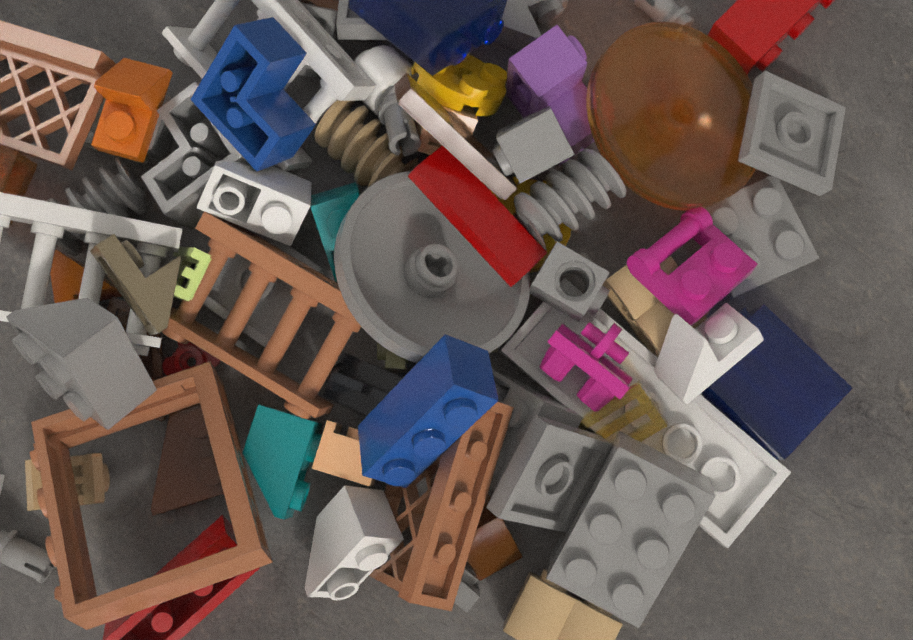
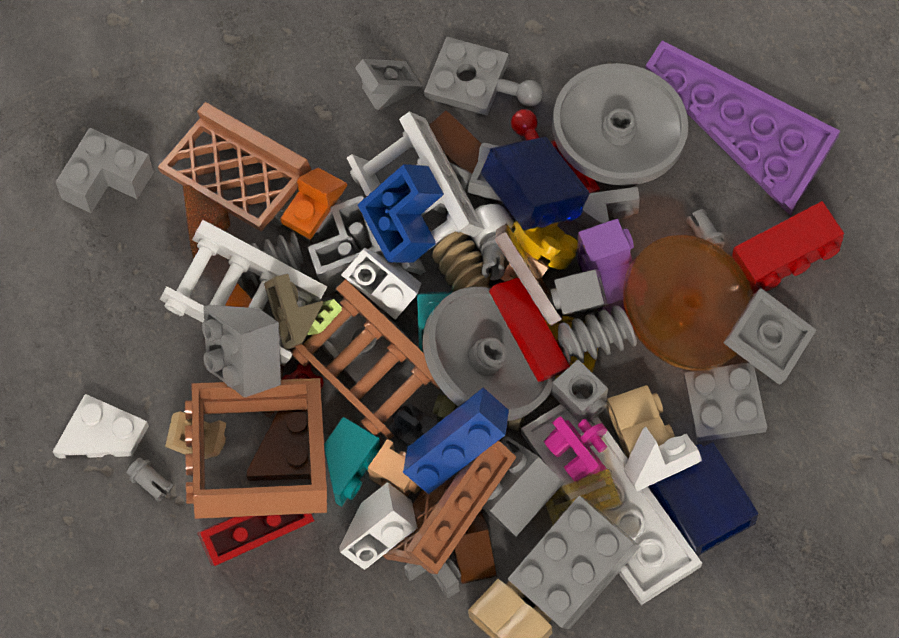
camera: 15 degrees right, 15 degrees down
(549, 475) = (527, 506): light grey plate -> none
(699, 280) = (671, 412): dark pink plate -> none

